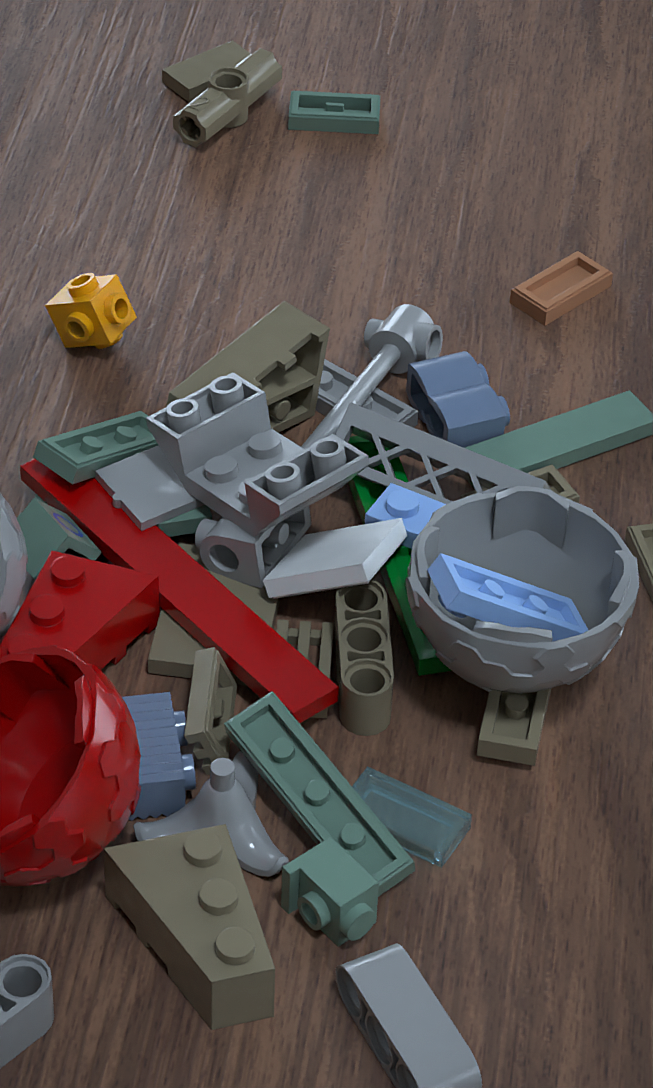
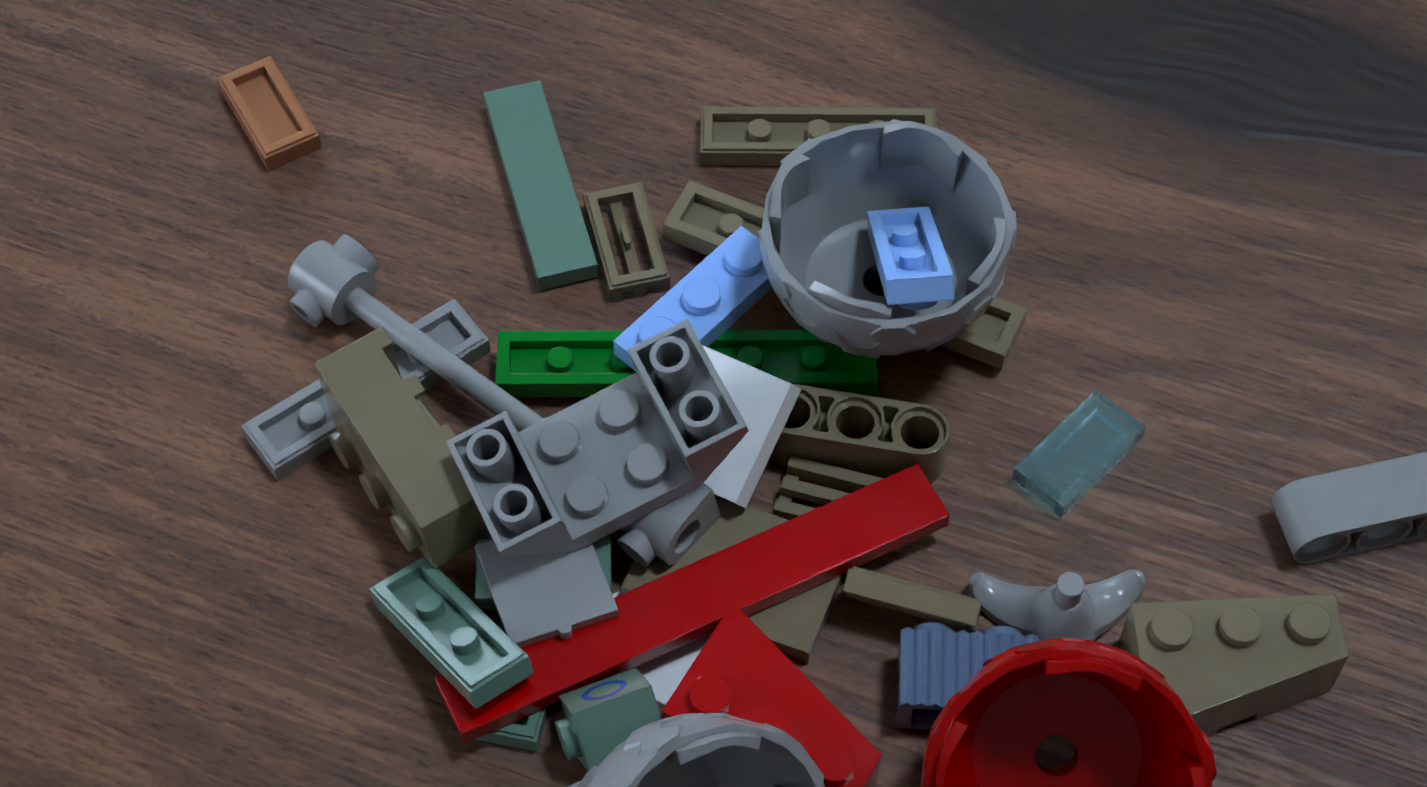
camera: 75 degrees left, 15 degrees up
(91, 311) = (172, 605): light orange brick -> none
(316, 789) = (1058, 520): sand green tile -> none
(331, 892) = (1193, 535): sand green brick -> none
(431, 451) = (583, 282): light grey fence -> none
(456, 399) = (460, 256): sand blue brick -> none

